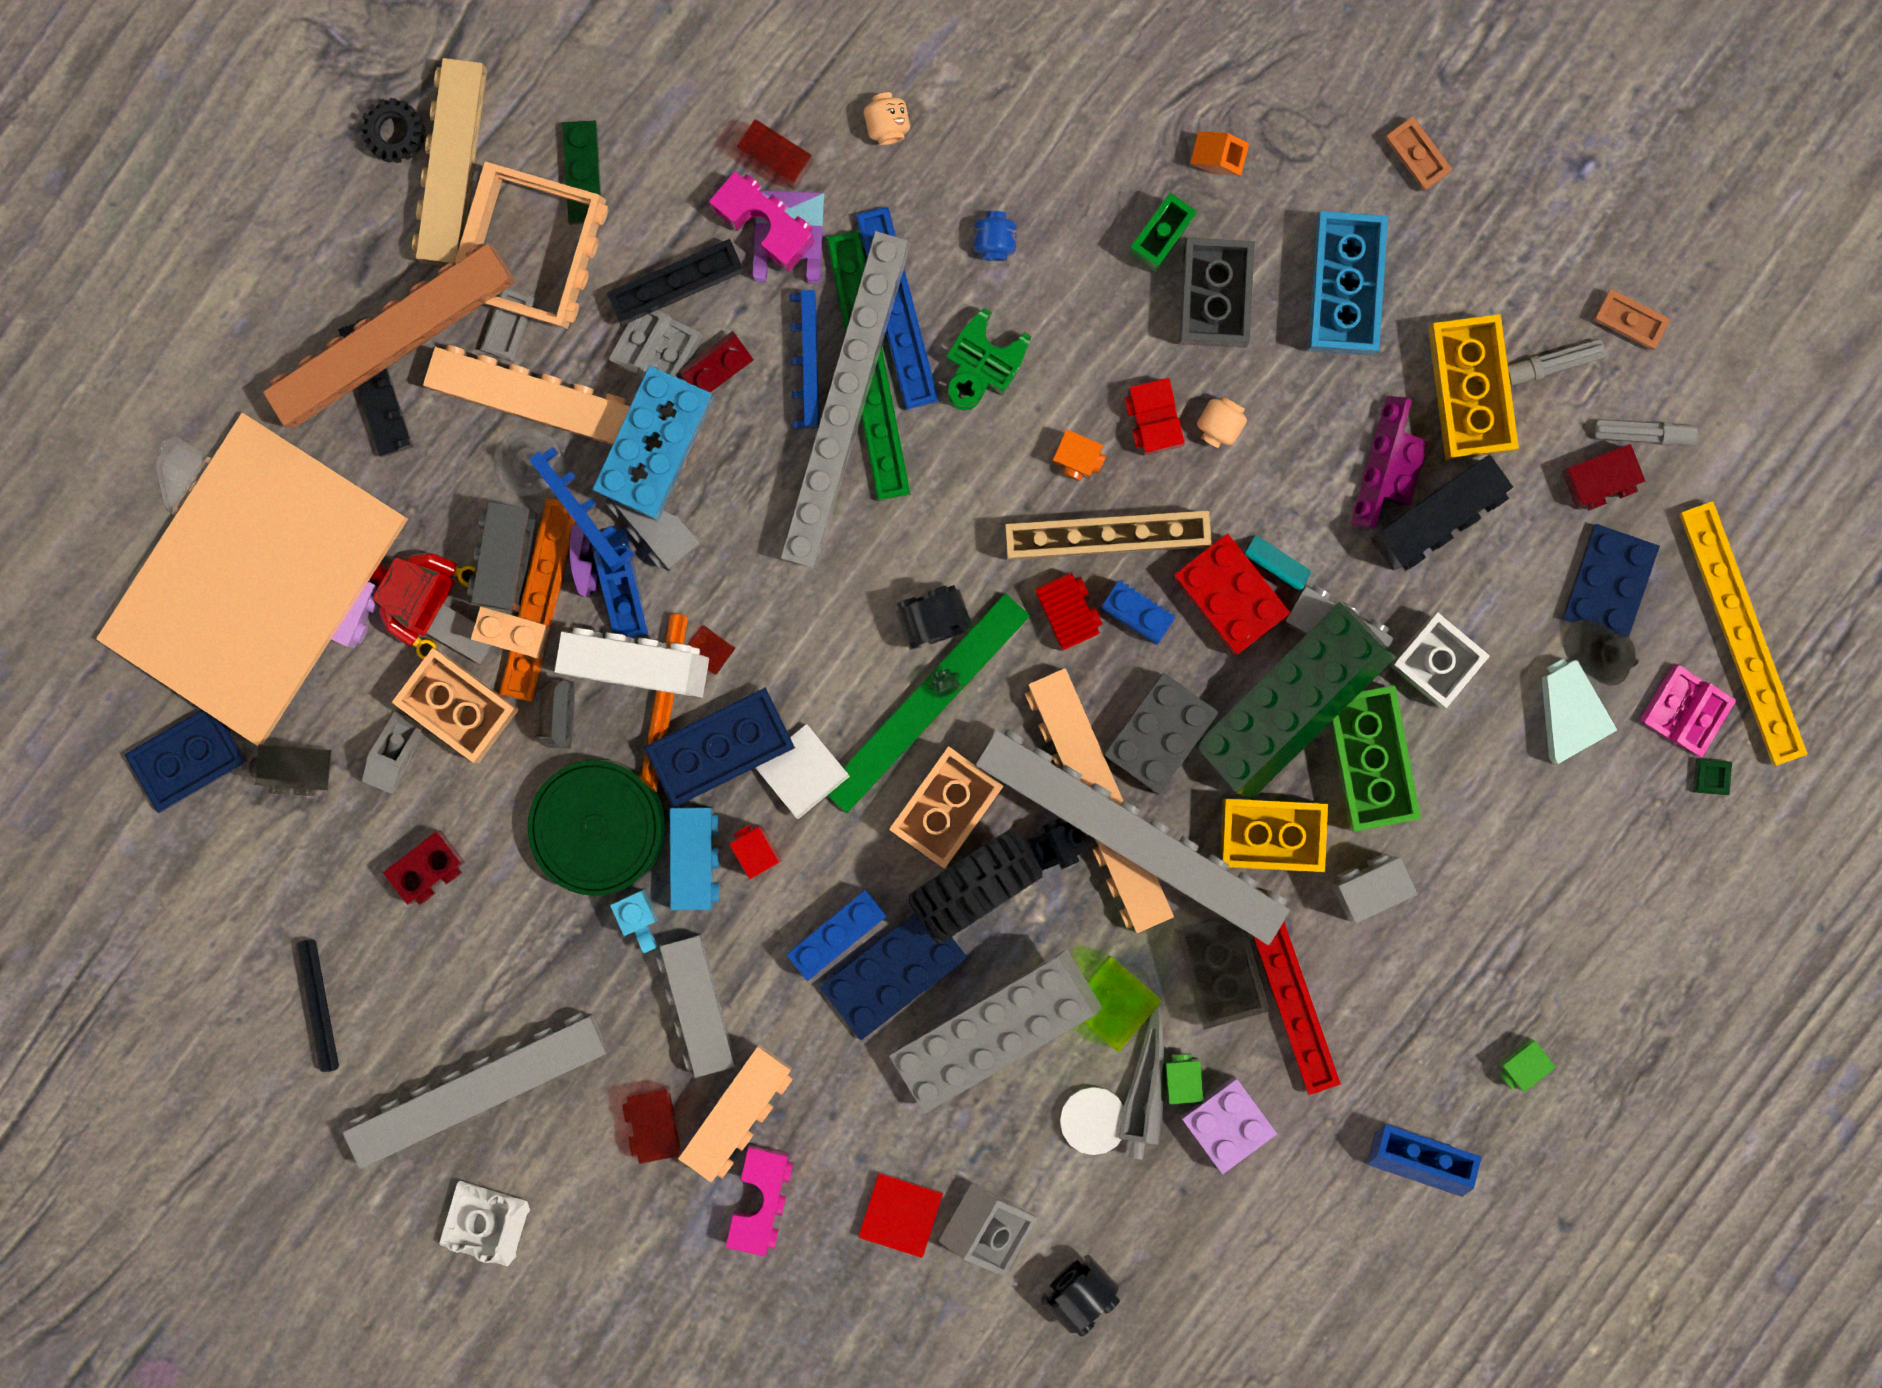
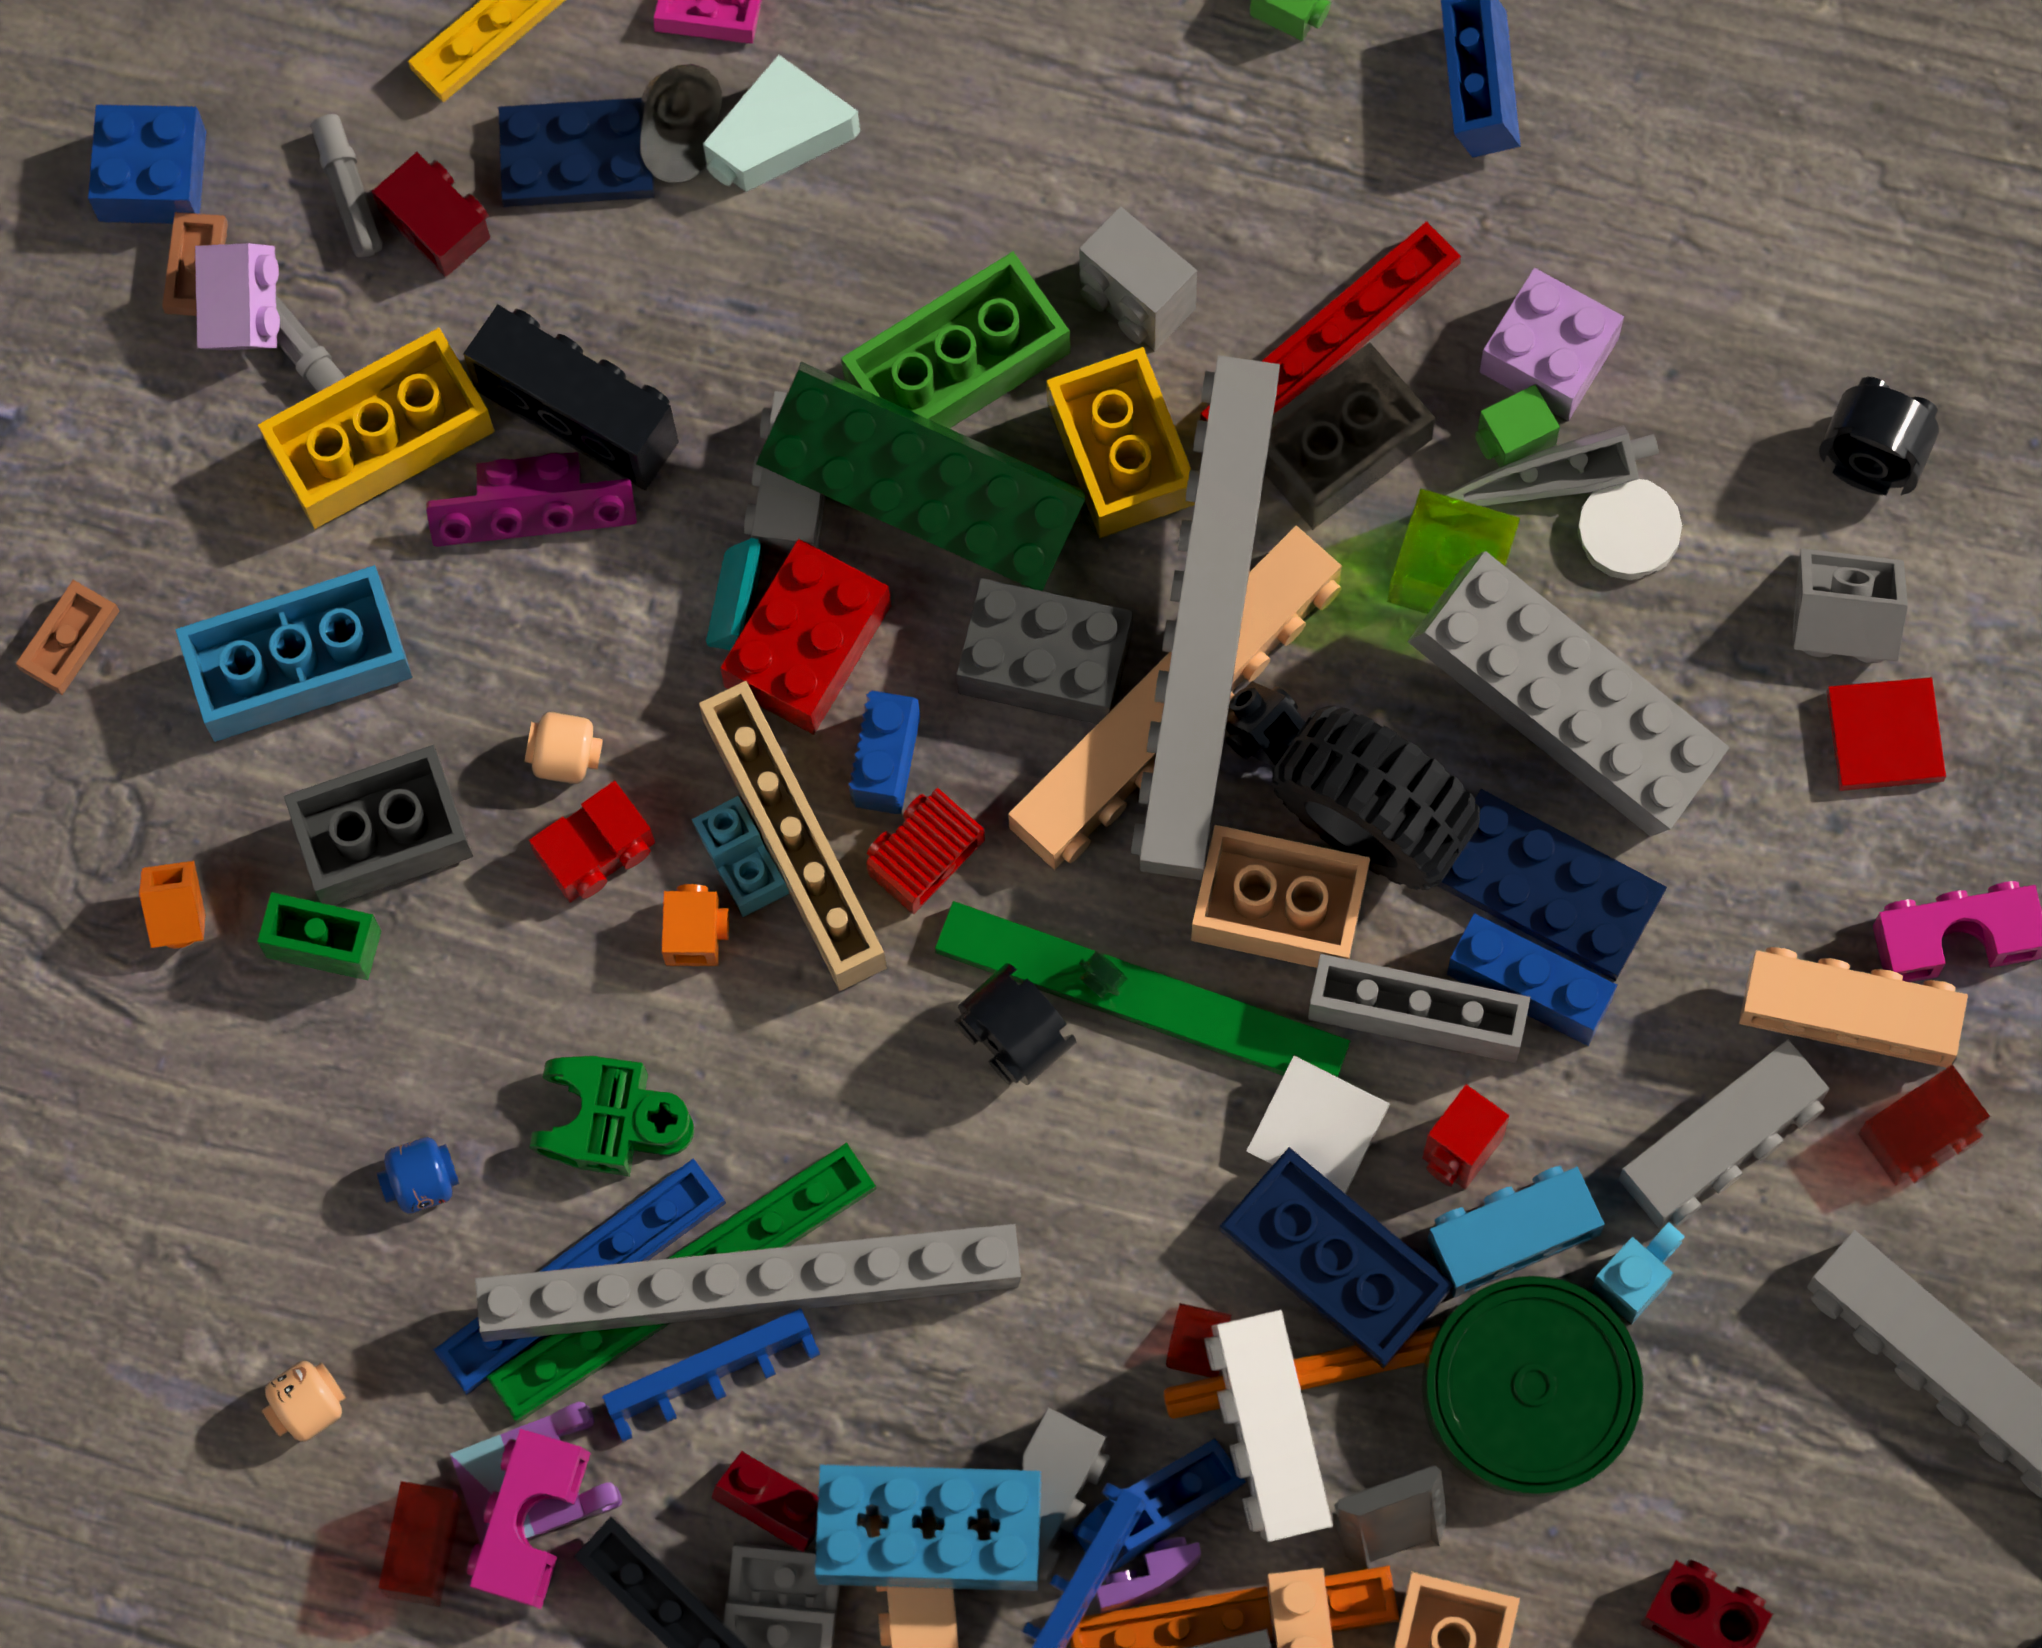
camera: 110 degrees left, 15 degrees down
(845, 860) = (1418, 1008): none -> light grey brick
(1112, 500) = (740, 856): none -> medium azure slope
(1439, 660) = (779, 318): white brick -> none
(1594, 334) = (236, 296): none -> lavender brick
(1710, 314) = (146, 163): none -> blue brick

